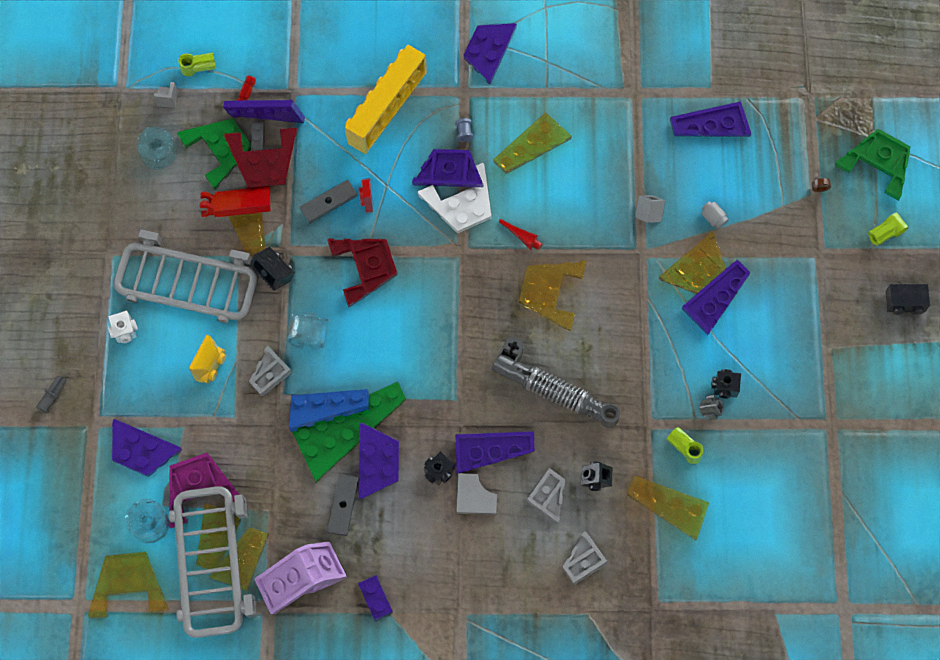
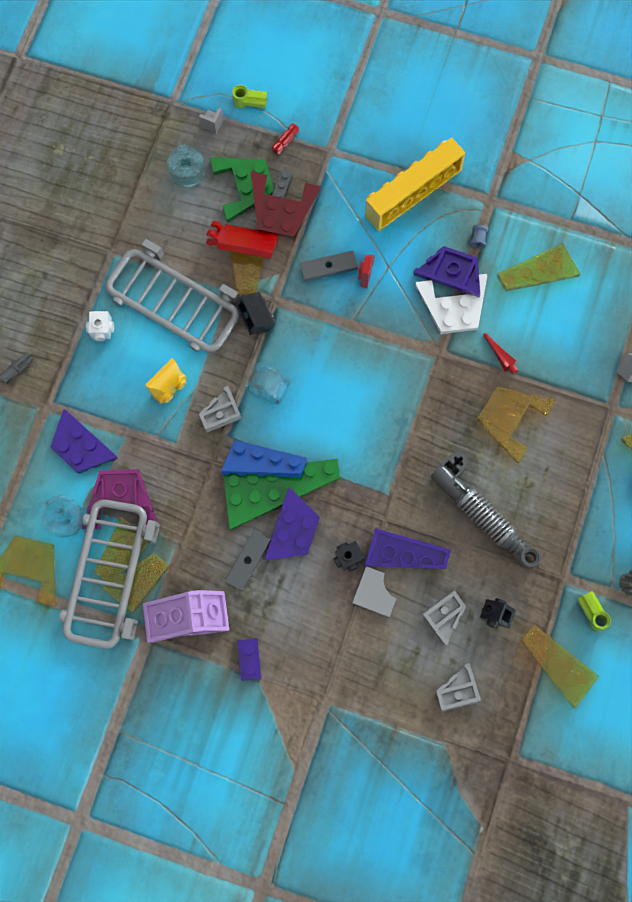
camera: 20 degrees right, 5 degrees up
(265, 109) = (298, 160): dark purple wing -> none
(372, 262) = (351, 337): dark red wing -> none
(488, 48) = (528, 164): dark purple wing -> none

